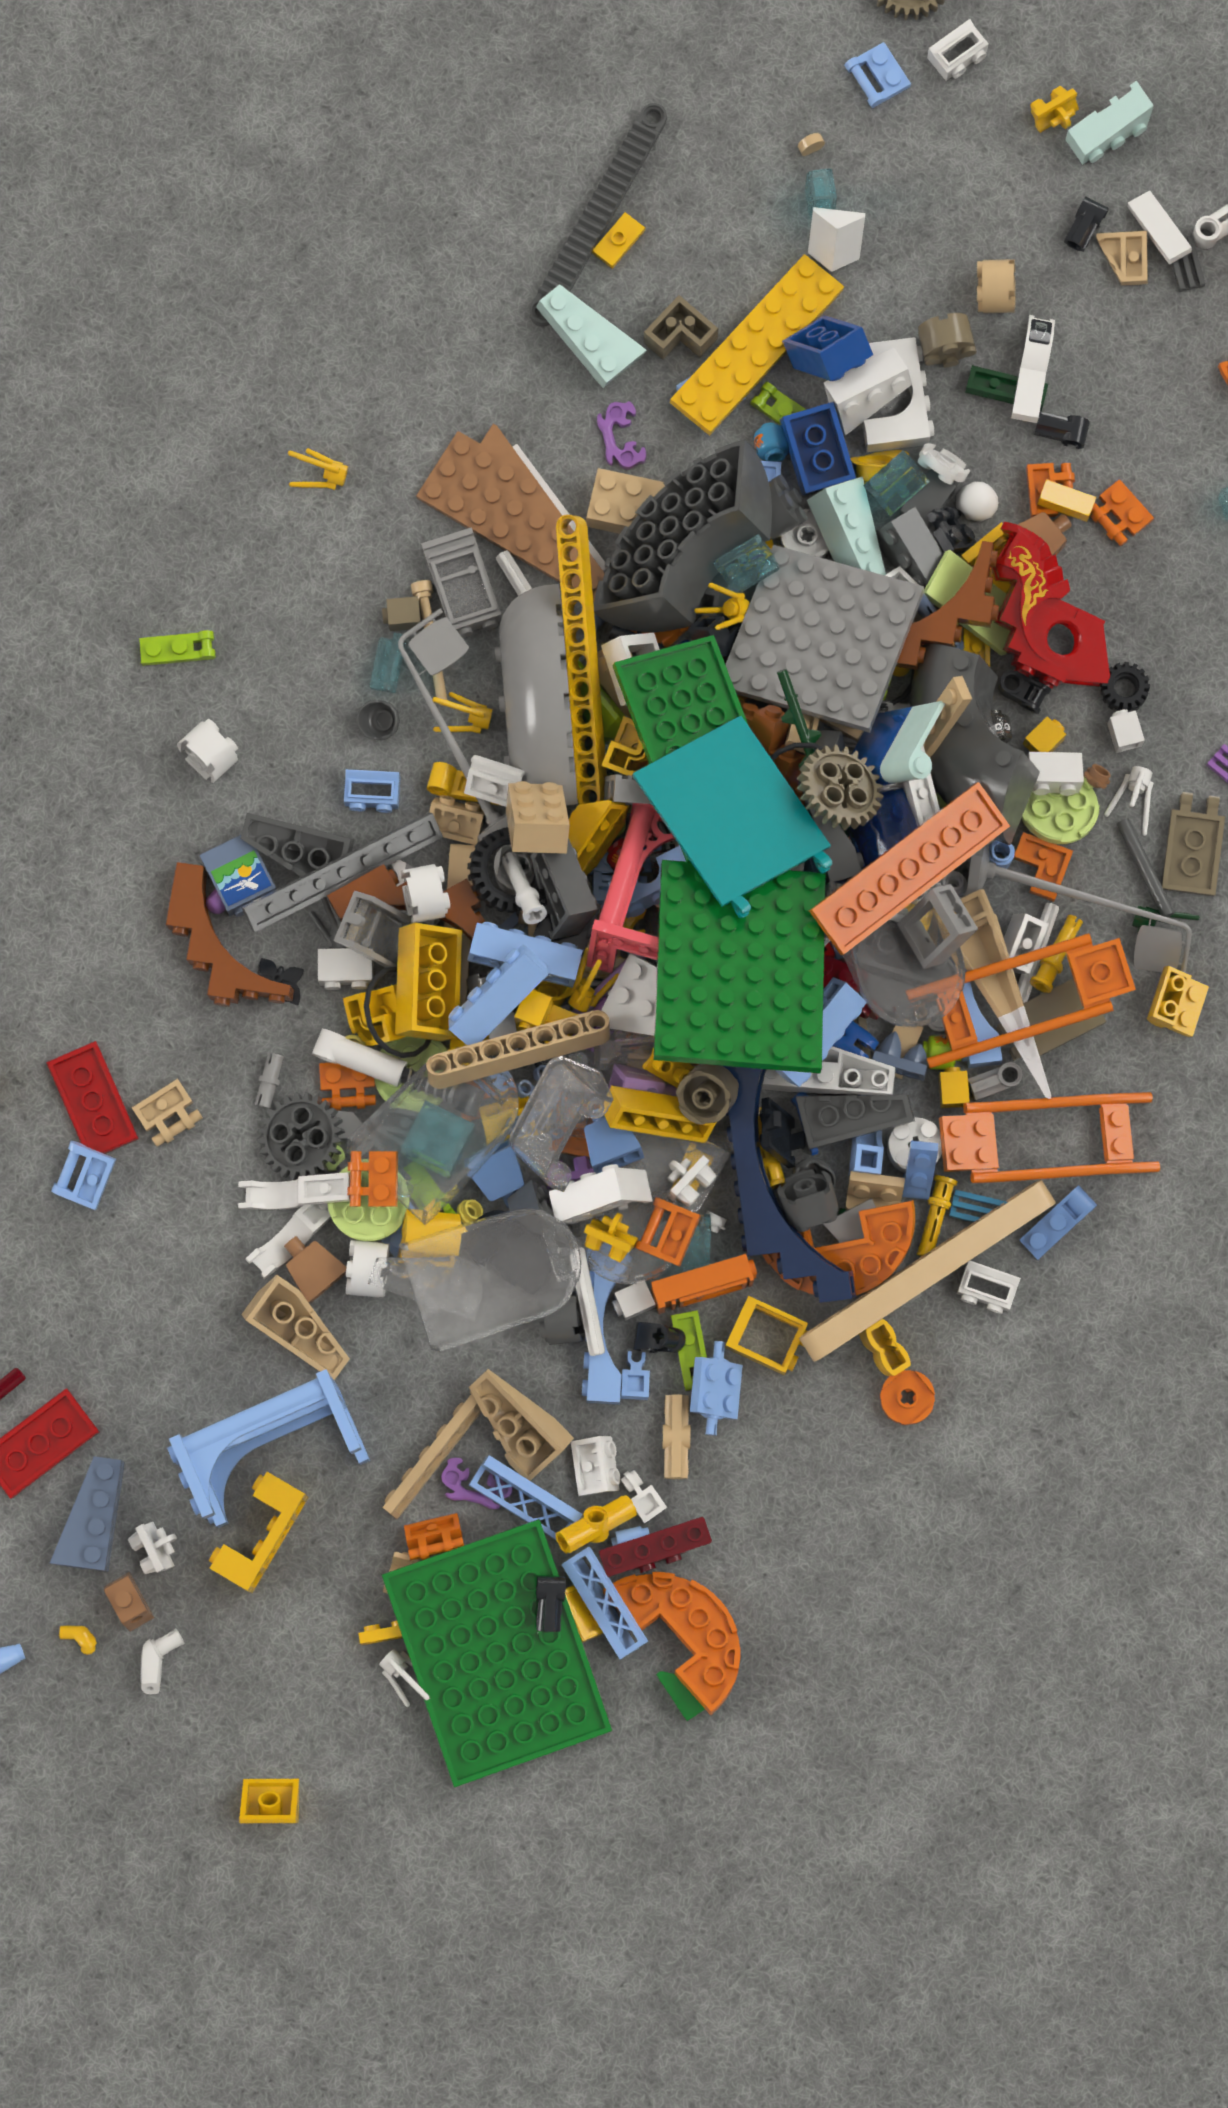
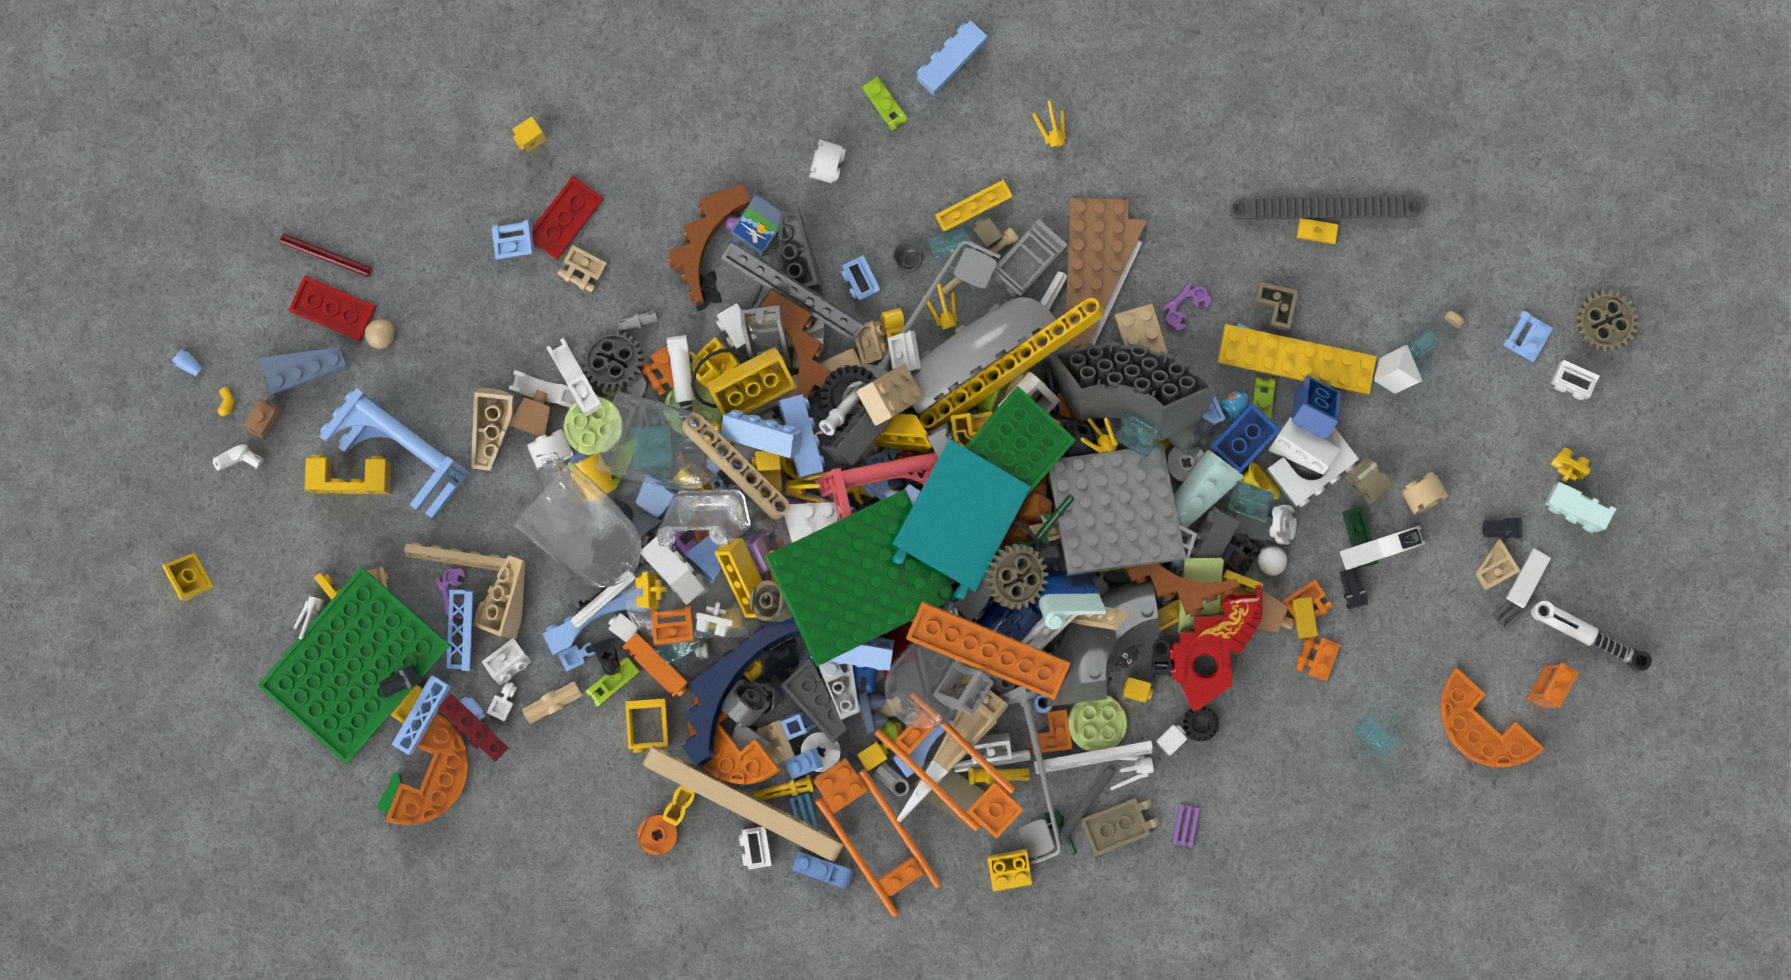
camera: 55 degrees right, 5 degrees up
(104, 1401) = (380, 333): none -> tan hair
(157, 1546) = (306, 417): white hips -> none
(169, 539) = (951, 57): none -> light blue brick
(361, 612) = (973, 206): none -> yellow plate
(382, 1179) = (607, 427): orange plate -> none
(424, 893) = (803, 350): white brick -> none
(433, 1536) = (408, 582): orange plate -> none
(469, 1210) = (628, 493): light yellow plate -> none
(591, 337) = (1237, 254): light aqua wedge -> none
(596, 1524) = (474, 687): yellow piece -> none
(716, 1388) = (595, 710): light blue plate -> none
(1058, 772) = (1116, 709): white brick -> none
(1097, 776) = (1131, 736): medium nougat plate -> none
(1098, 828) = (1096, 757): none -> white tile

